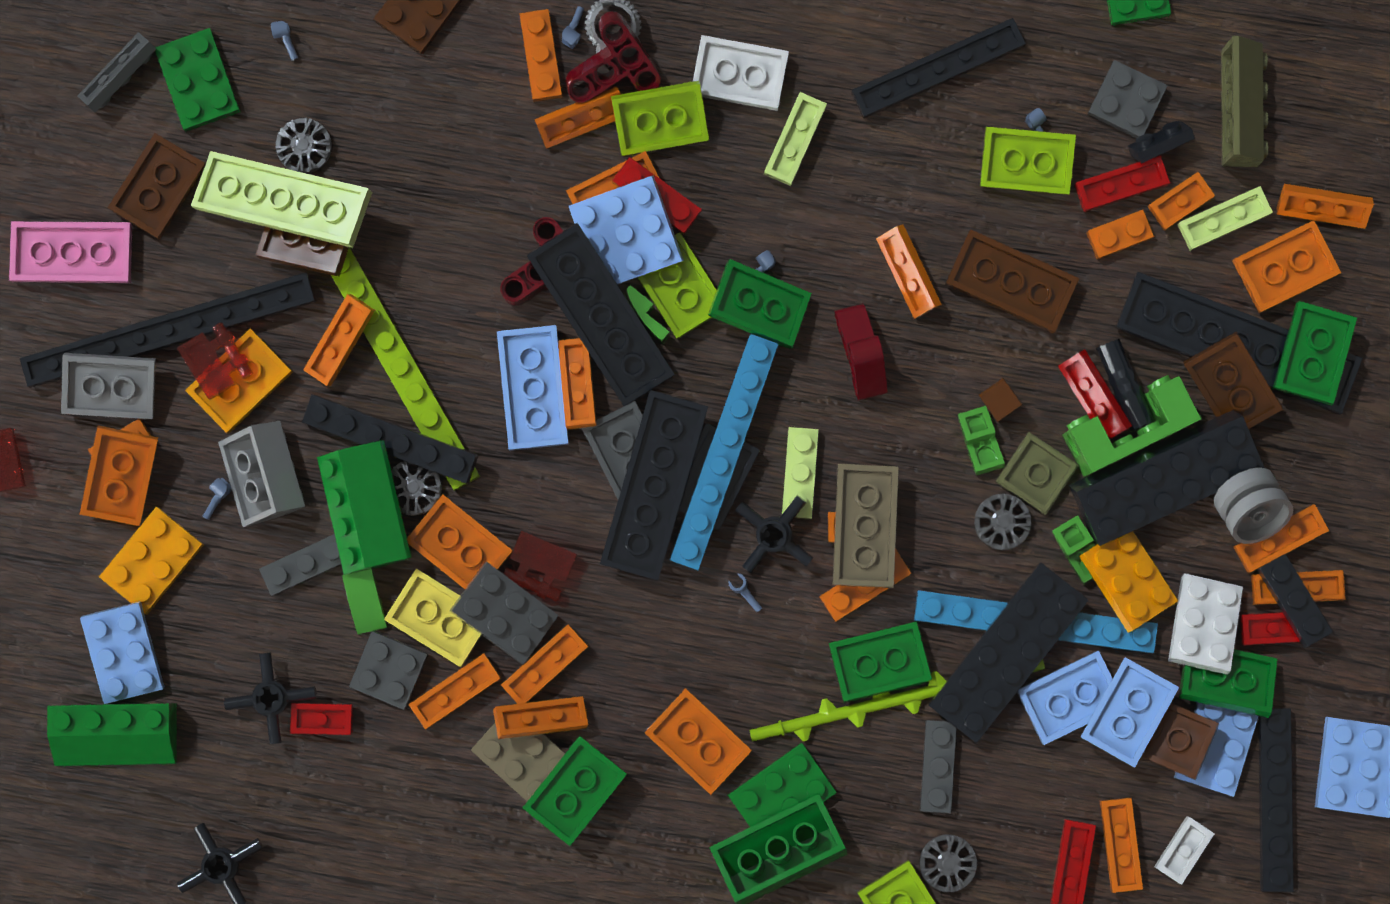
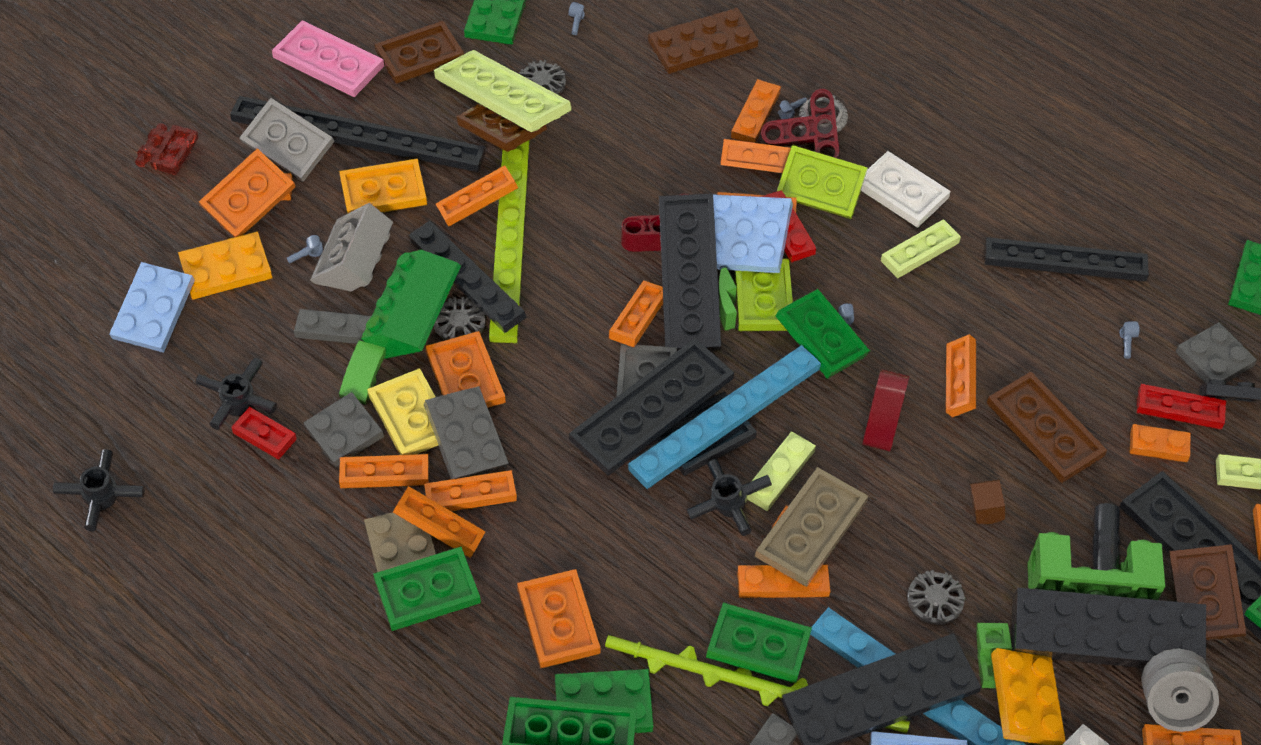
camera: 25 degrees right, 30 degrees down
(112, 734) = (99, 354): green slope -> none
(207, 366) = (367, 160): clear red plate -> none
(532, 387) = (599, 301): light blue plate -> none
(543, 557) = (527, 418): clear red plate -> none
(744, 591) = (675, 527): sand blue hand -> none
(981, 440) = (952, 527): bright green slope -> none
(1027, 160) = (1107, 350): lime plate -> none
(1036, 473) = (987, 577): olive tile -> none
(1094, 393) = (1072, 521): red plate -> none
(1181, 201) = (1228, 441): orange plate -> none

